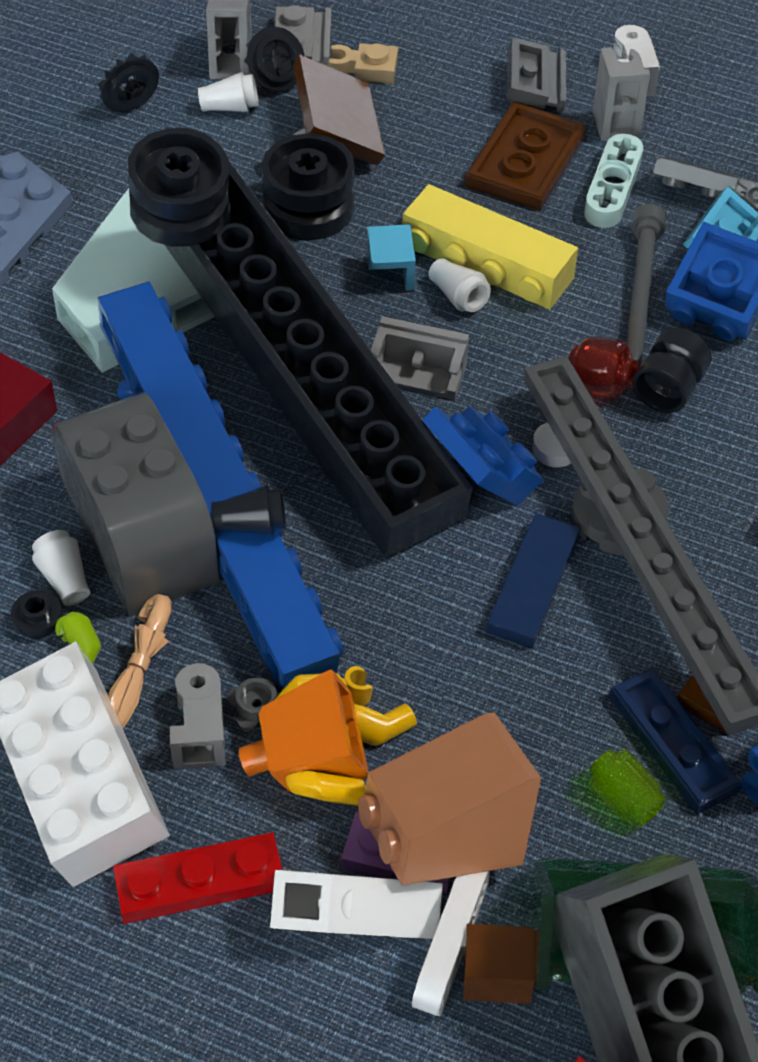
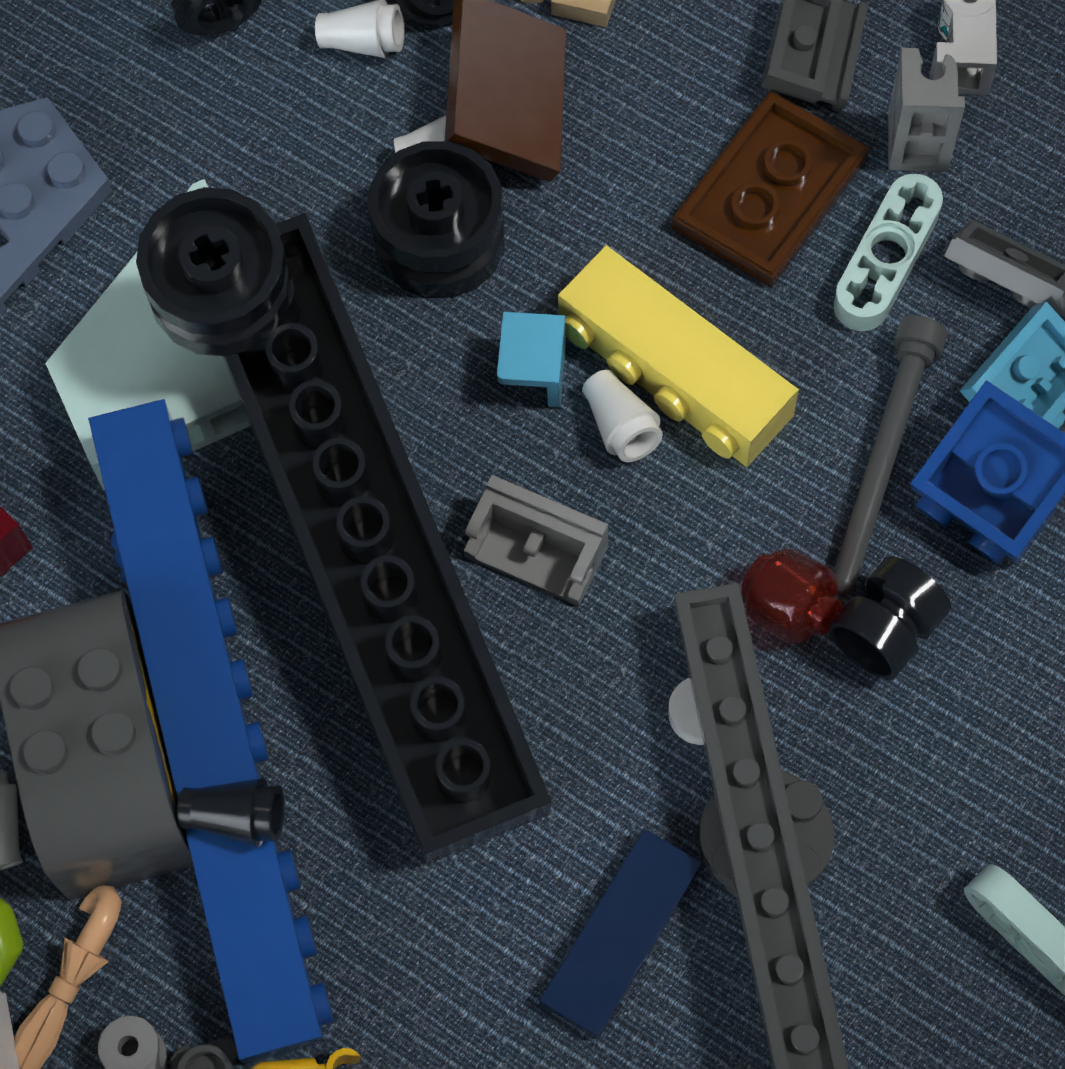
camera: 15 degrees right, 15 degrees up
(486, 452) = (586, 732): blue plate -> none

